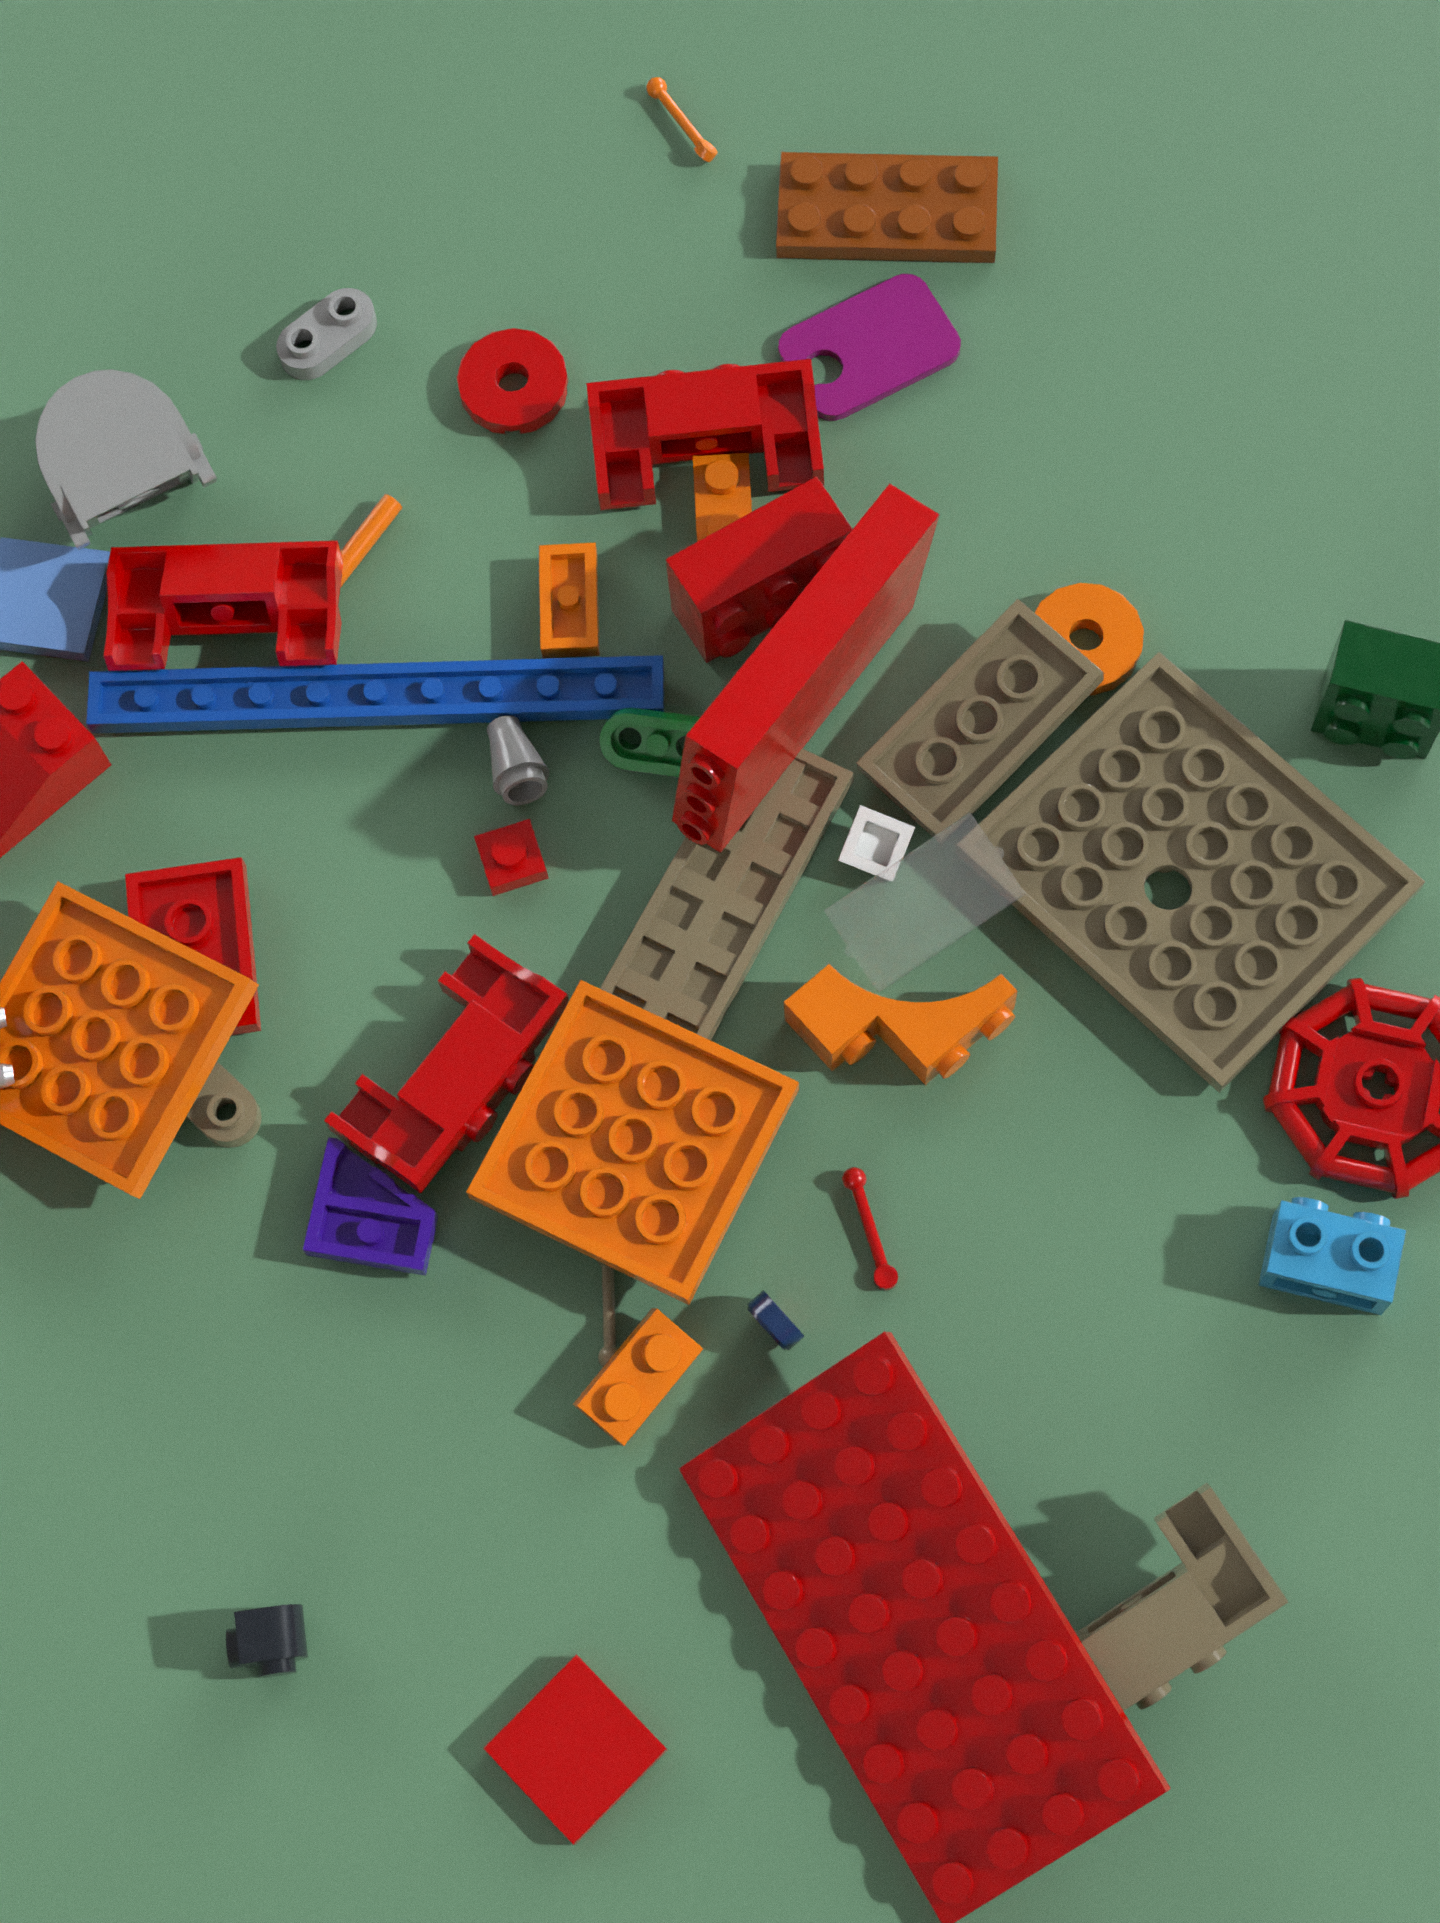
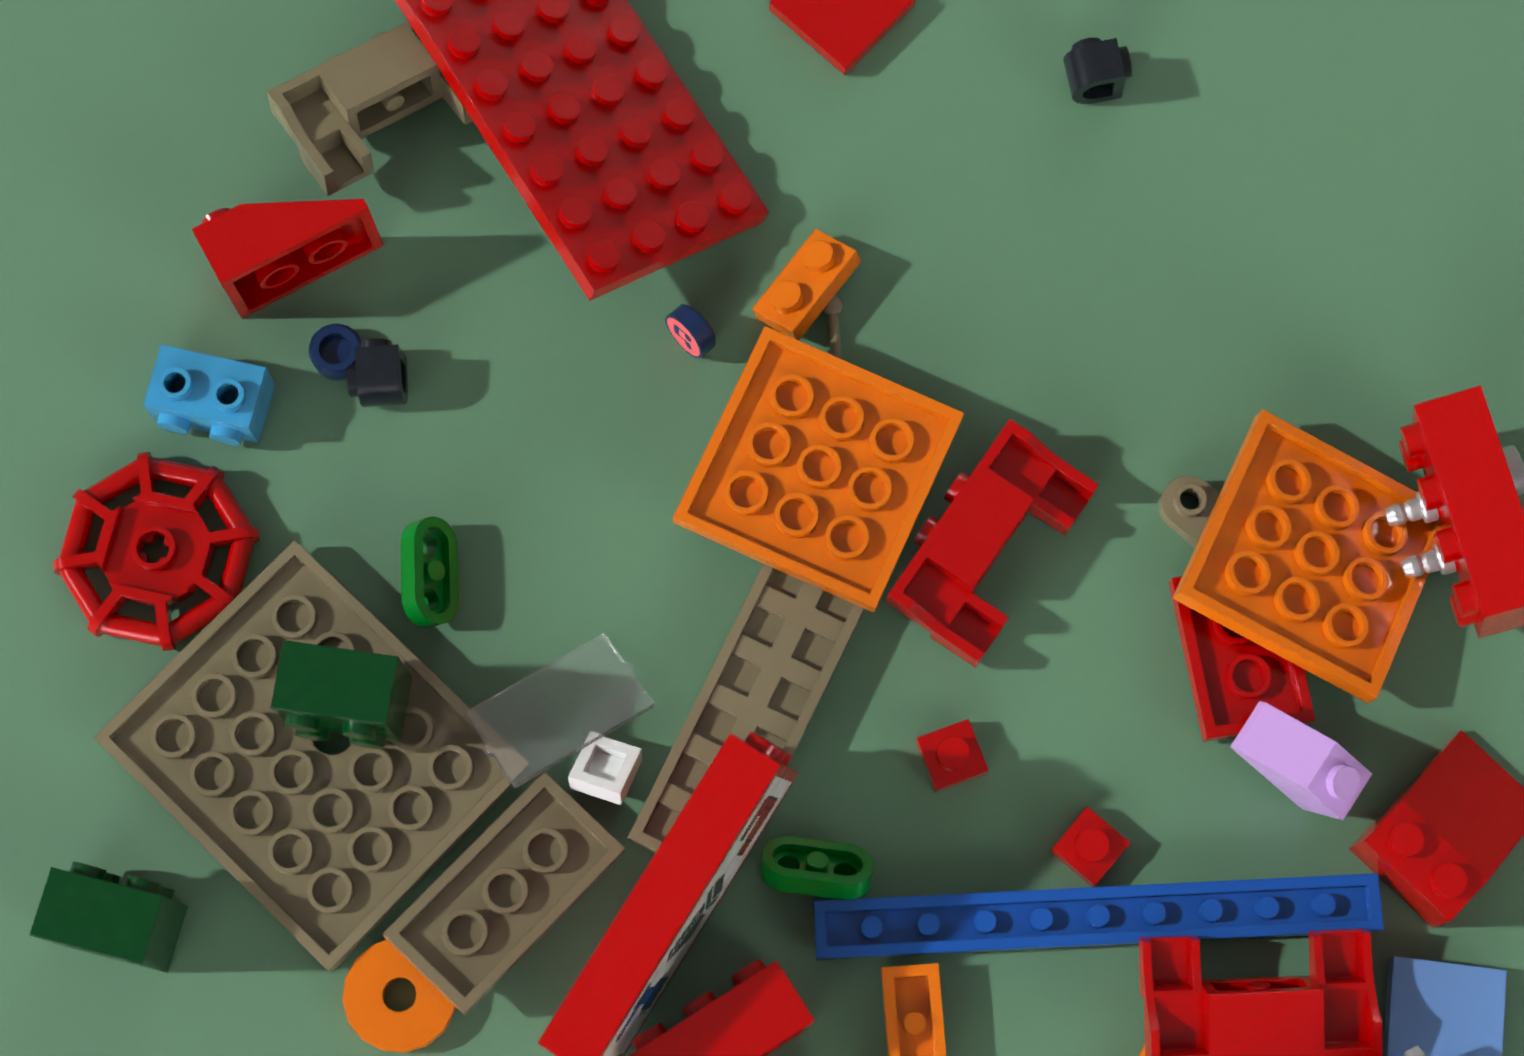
camera: 170 degrees right, 5 degrees up
(146, 822) = (1301, 762): none -> lavender slope
(367, 1217) = (1055, 407): dark purple wing -> none
(376, 765) = (1090, 847): none -> red plate
(516, 765) = (955, 848): light grey cone -> none
(885, 1275) = (597, 381): red hinge -> none
(929, 1037) = (555, 581): orange arch -> none
(1070, 1051) = (429, 576): none -> green plate
(1136, 1277) = (378, 374): none -> black plate
(1157, 888) = (341, 693): none -> dark green brick
(1188, 1315) = (333, 350): none -> dark blue tile
(1269, 1417) = (283, 246): none -> red slope

